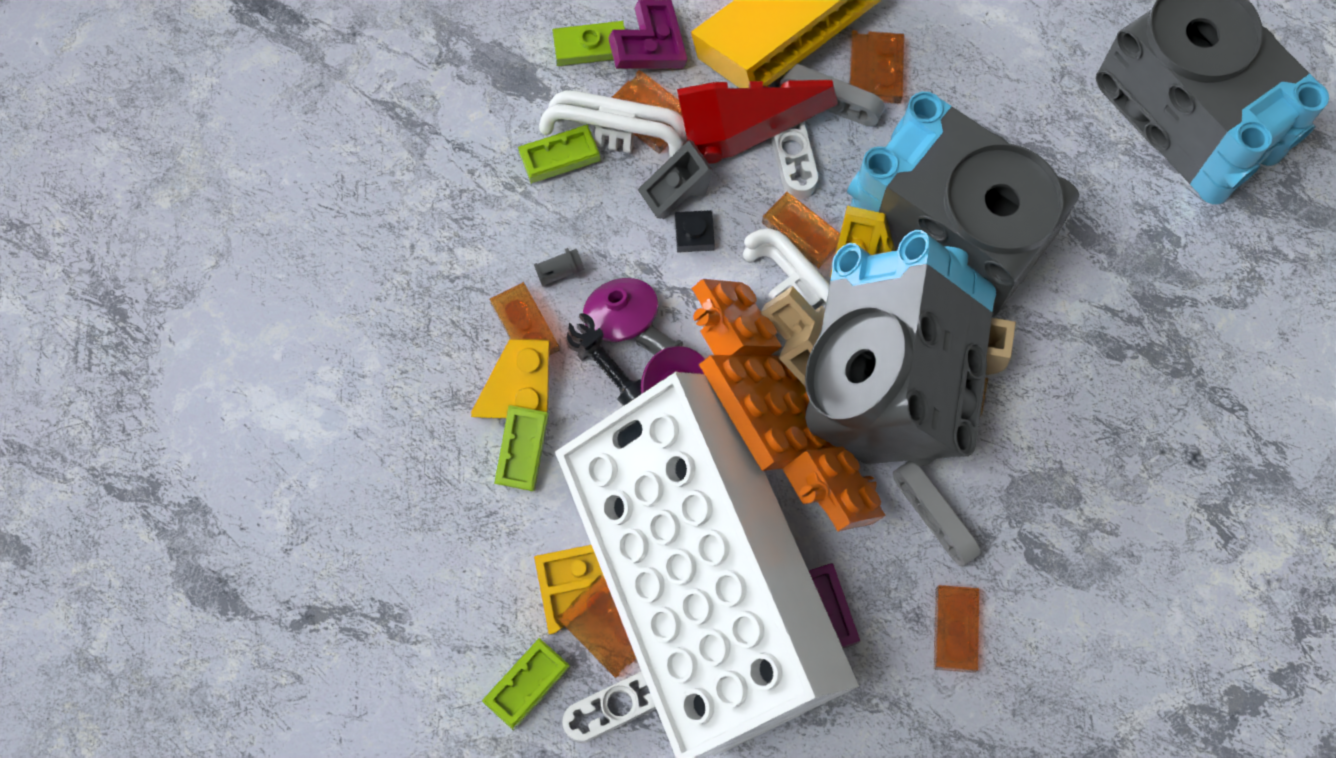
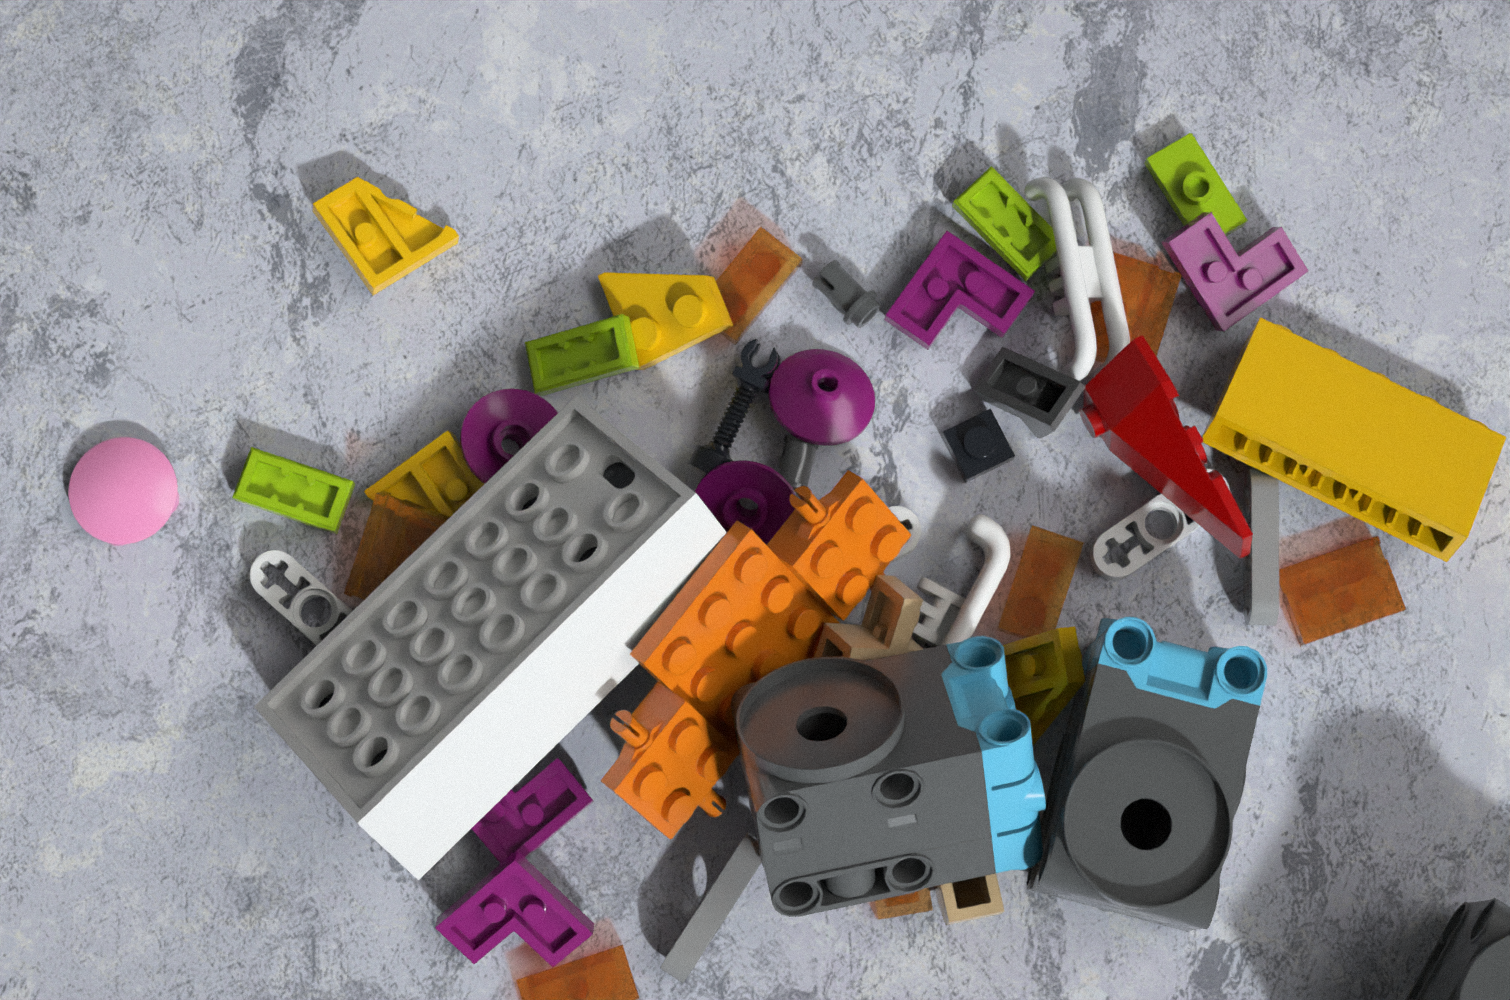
camera: 65 degrees right, 10 degrees up
(370, 550) = (380, 234): none -> yellow wing
(541, 512) = (498, 417): none -> magenta dish
(582, 197) = (955, 279): none -> magenta plate
(883, 645) = (518, 901): none -> magenta plate

